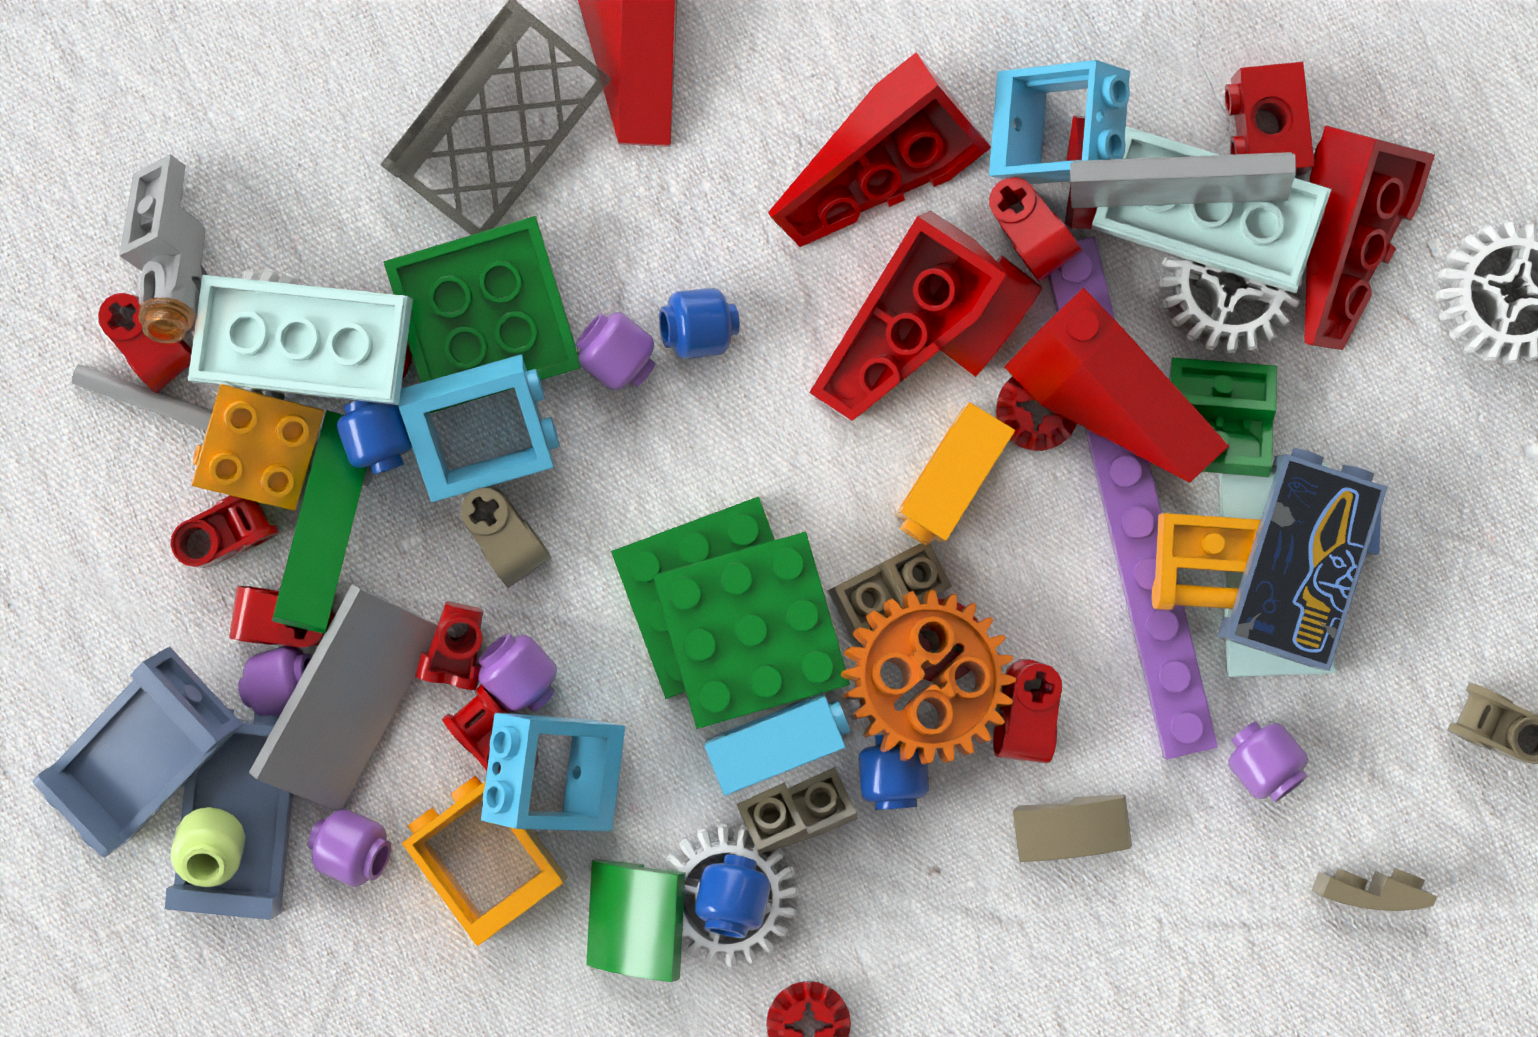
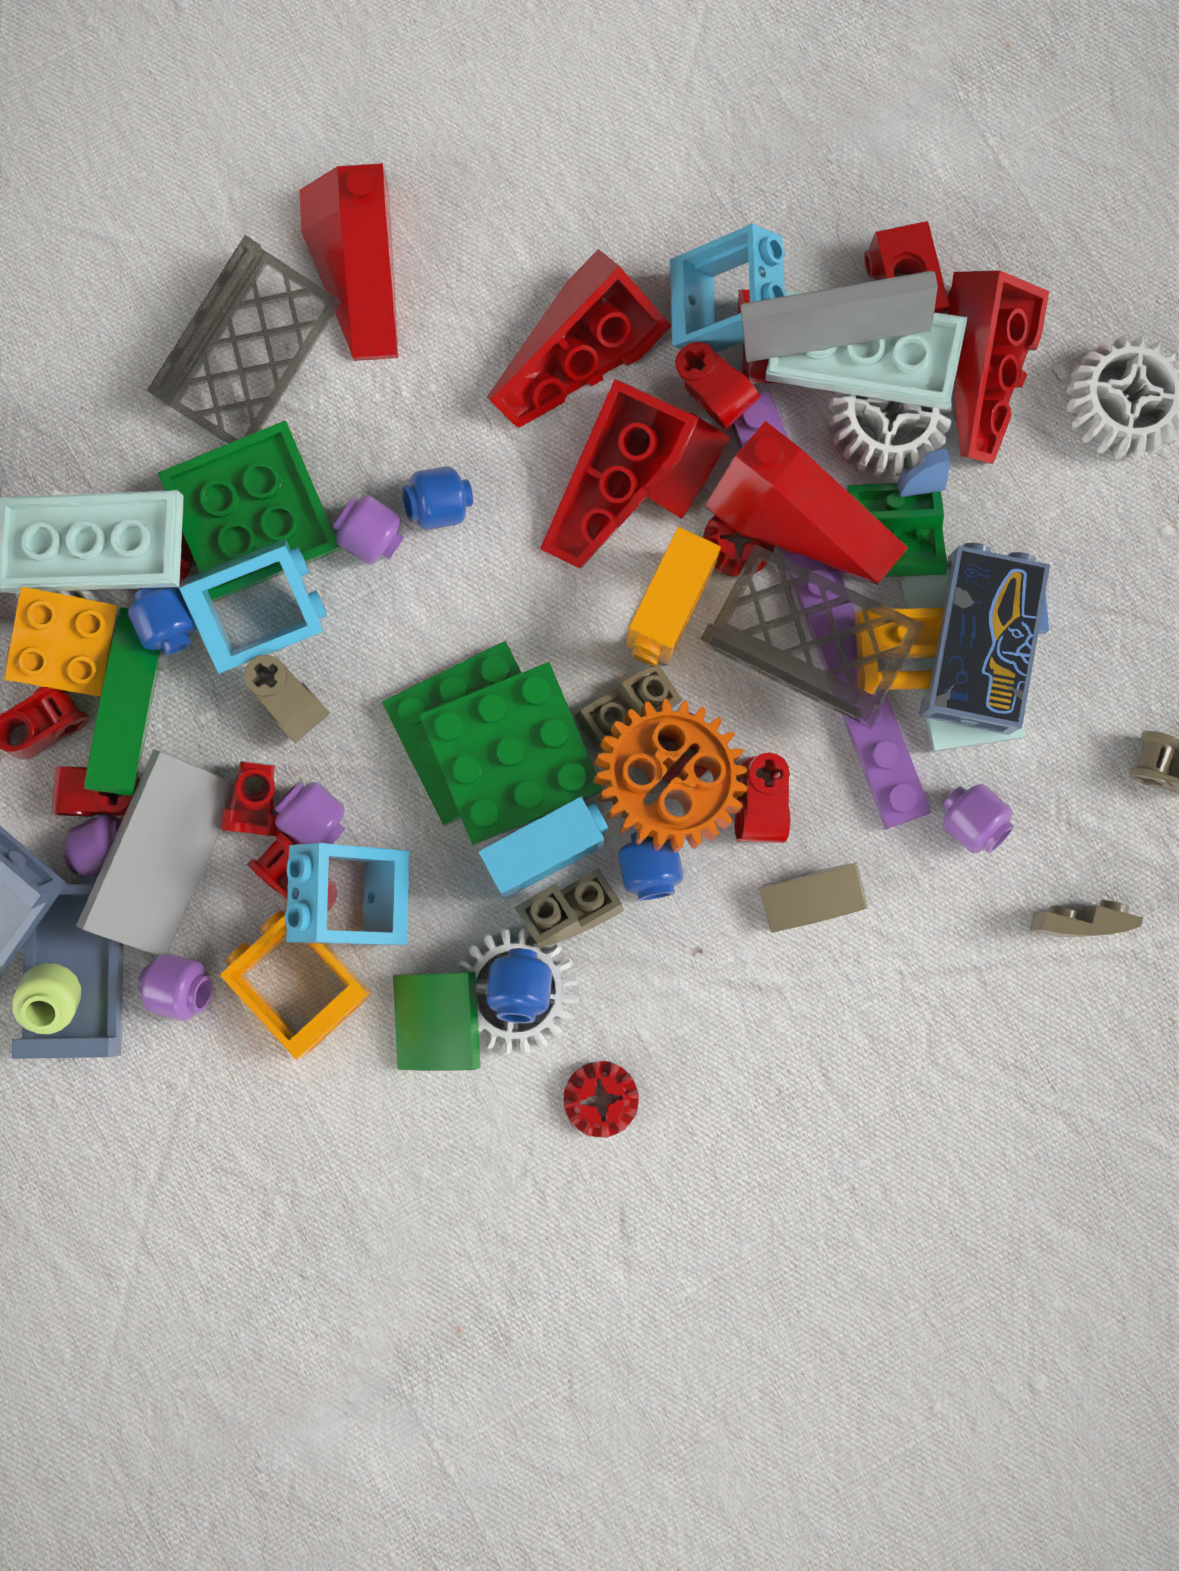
camera: 10 degrees left, 5 degrees down
(1079, 573) = (793, 672): none -> clear smoke fence
(1261, 364) = (927, 476): none -> medium blue tile

